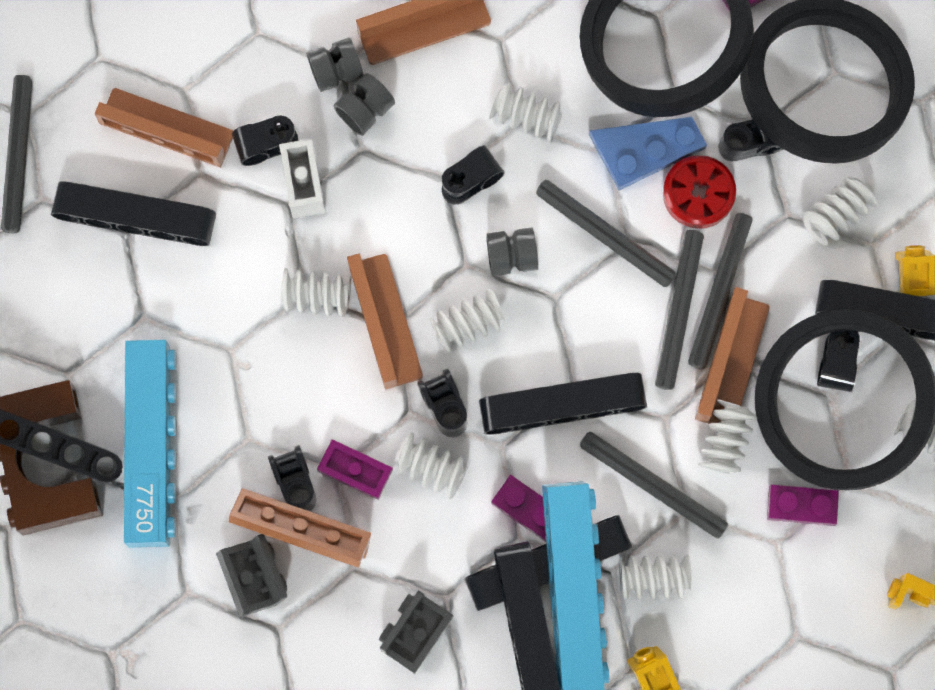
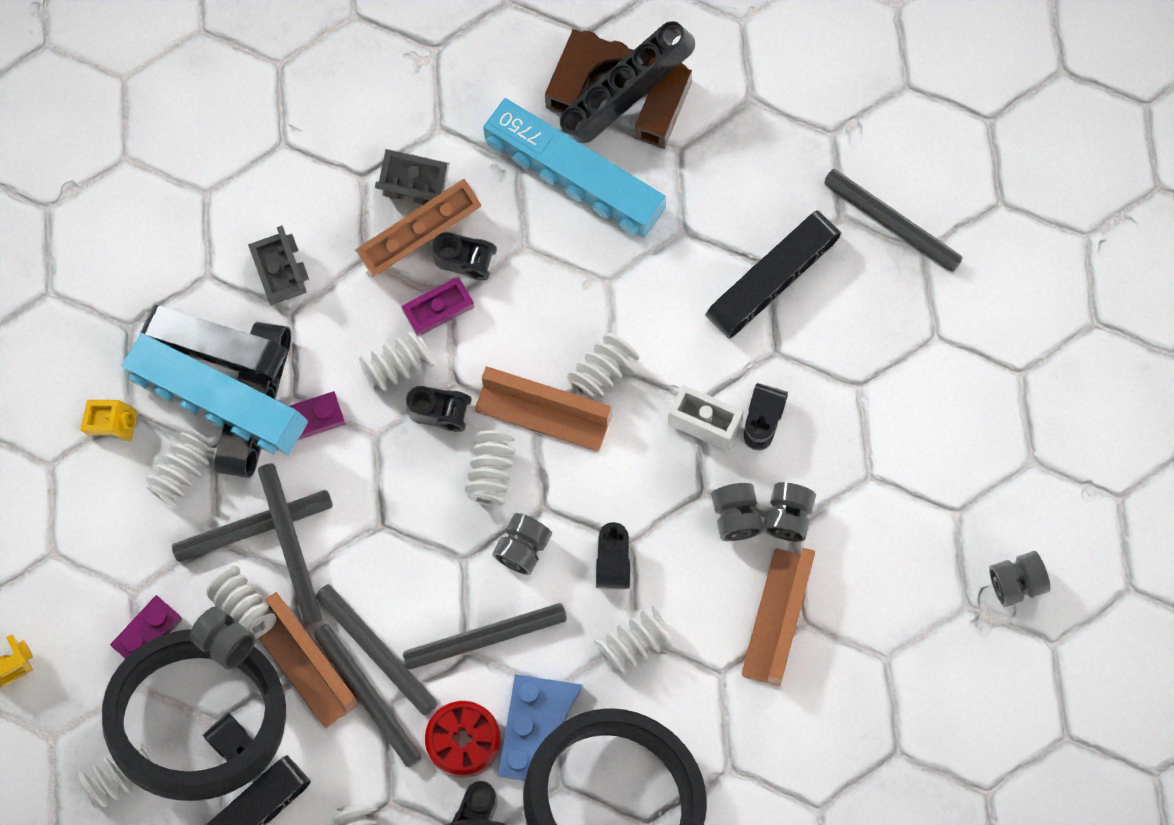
camera: 130 degrees right, 5 degrees down
(165, 127) = (833, 347): nougat panel -> none
(562, 403) = (368, 499): black beam -> none
(648, 437) = (289, 544): none -> dark grey axle
(773, 416) = (226, 640): none -> dark grey wheel

